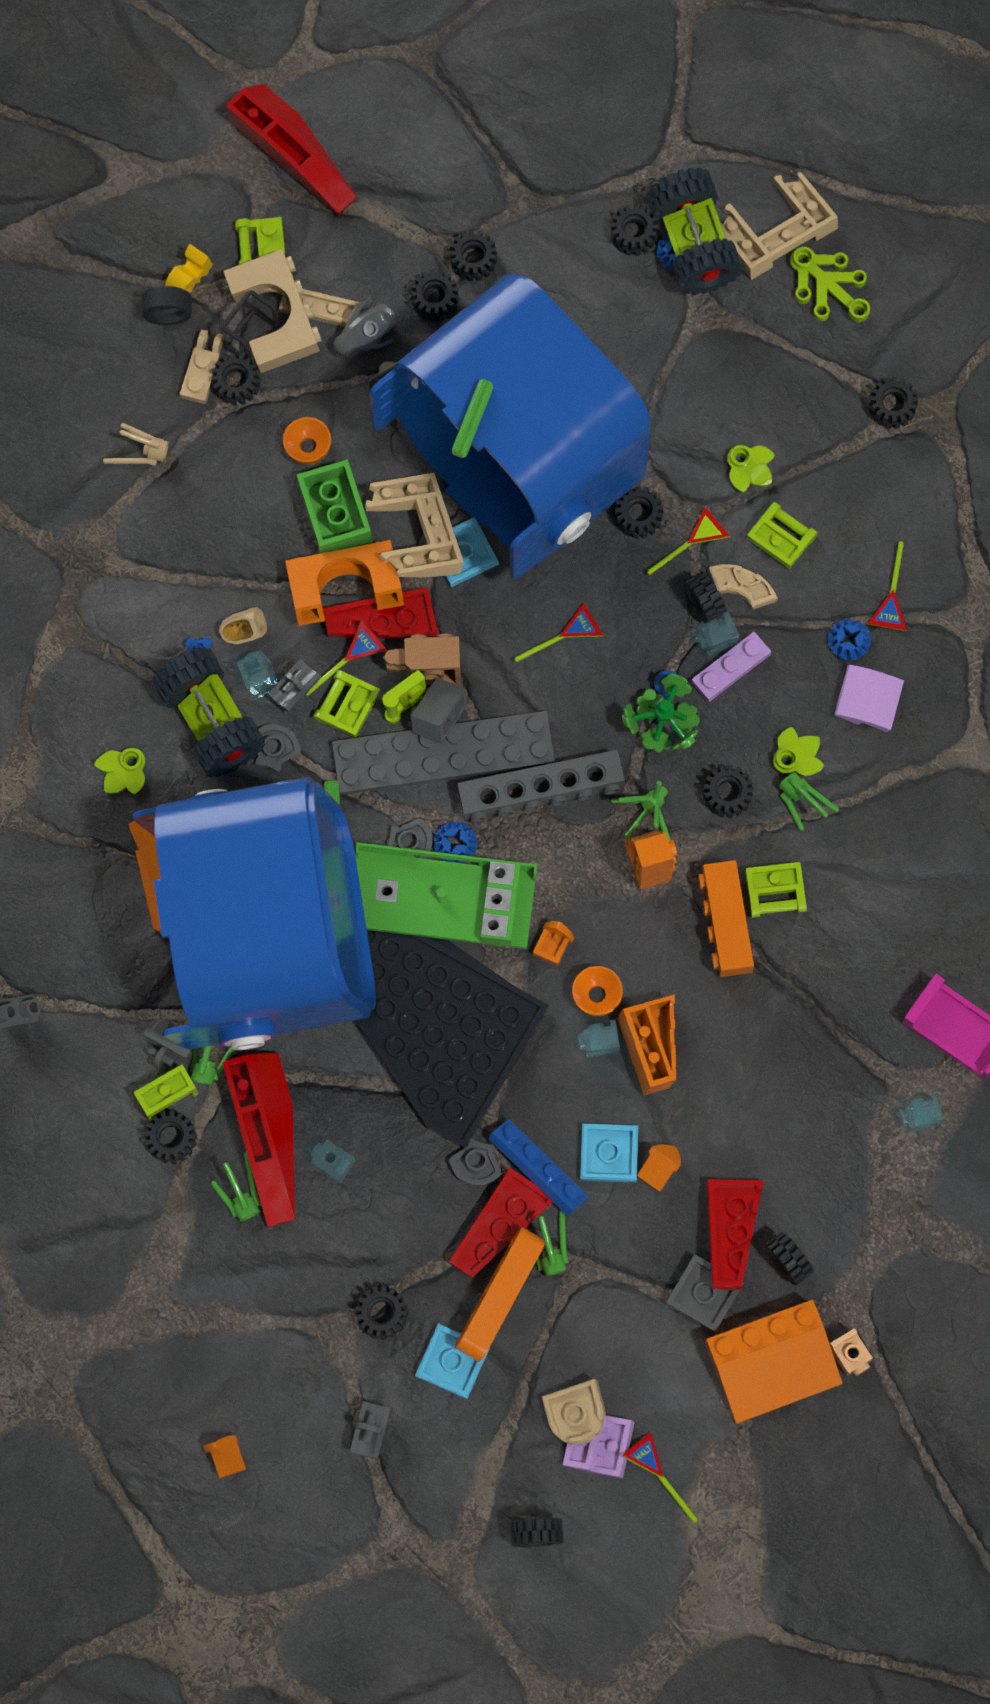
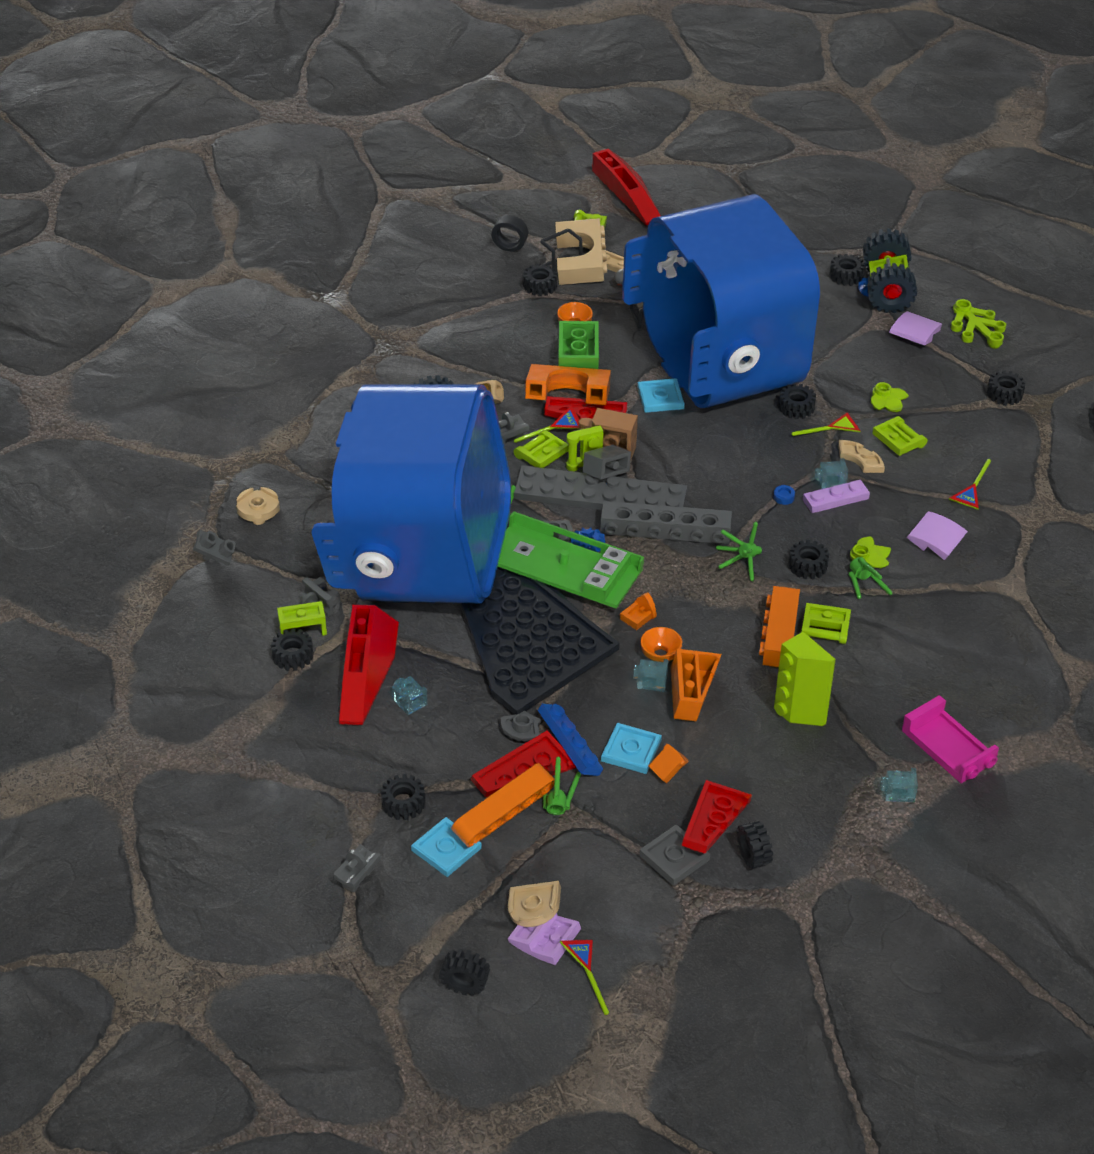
camera: 15 degrees right, 30 degrees down
(25, 901) = (257, 513): none -> tan plate
(154, 448) = (467, 297): tan plant -> none
(188, 275) = (540, 225): yellow leg -> none
(199, 372) = (514, 276): tan hinge -> none
(203, 1070) = (338, 617): bright green plant -> none
(226, 1455) = (232, 853): orange tile -> none
(245, 1206) = (327, 704): bright green plant -> none
(421, 493) = (645, 380): tan wedge -> none
(472, 418) = (690, 241): bright green axle -> none
(580, 626) = (732, 451): piece -> none
(652, 858) = (735, 570): orange wedge -> none
(653, 706) = (770, 497): bright green plant -> none
(704, 597) = (828, 445): black tyre -> none
(752, 320) = (915, 328): none -> lavender slope
(773, 1361) = (717, 913): orange slope -> none
(784, 1023) = (804, 681): none -> lime slope
(812, 220) = (971, 285): tan wedge -> none
(840, 1351) = (785, 926): light nougat brick -> none
(847, 650) = (924, 504): blue gear -> none

